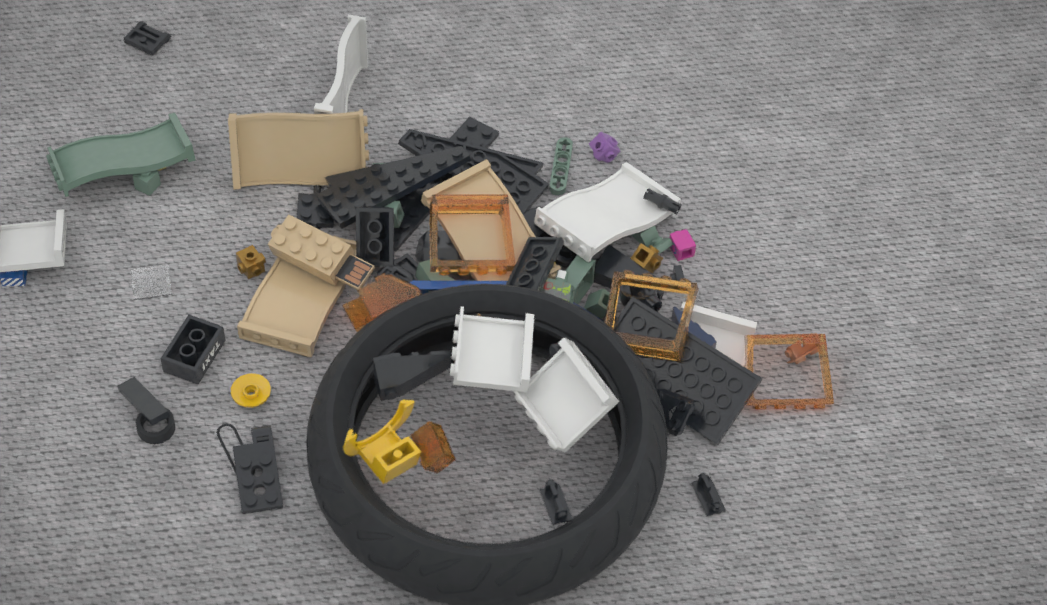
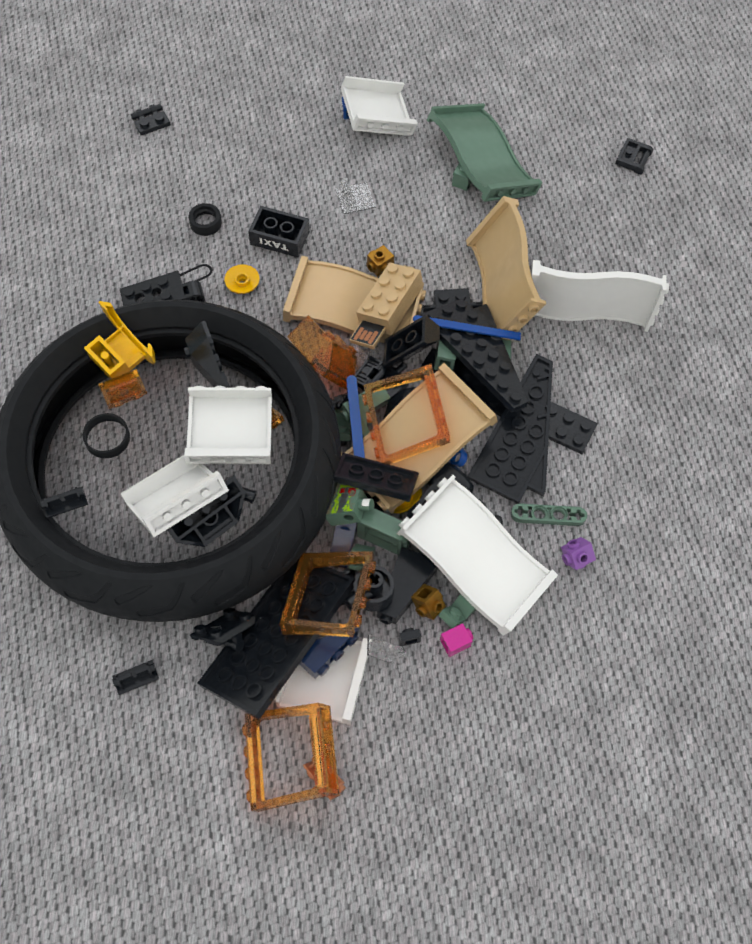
camera: 85 degrees right, 10 degrees up
(143, 401) = (221, 204): black tile -> none
(363, 186) = (474, 328): none -> blue piece
(482, 487) = (103, 418): none -> black tyre
(662, 201) = (502, 611): black pin -> none

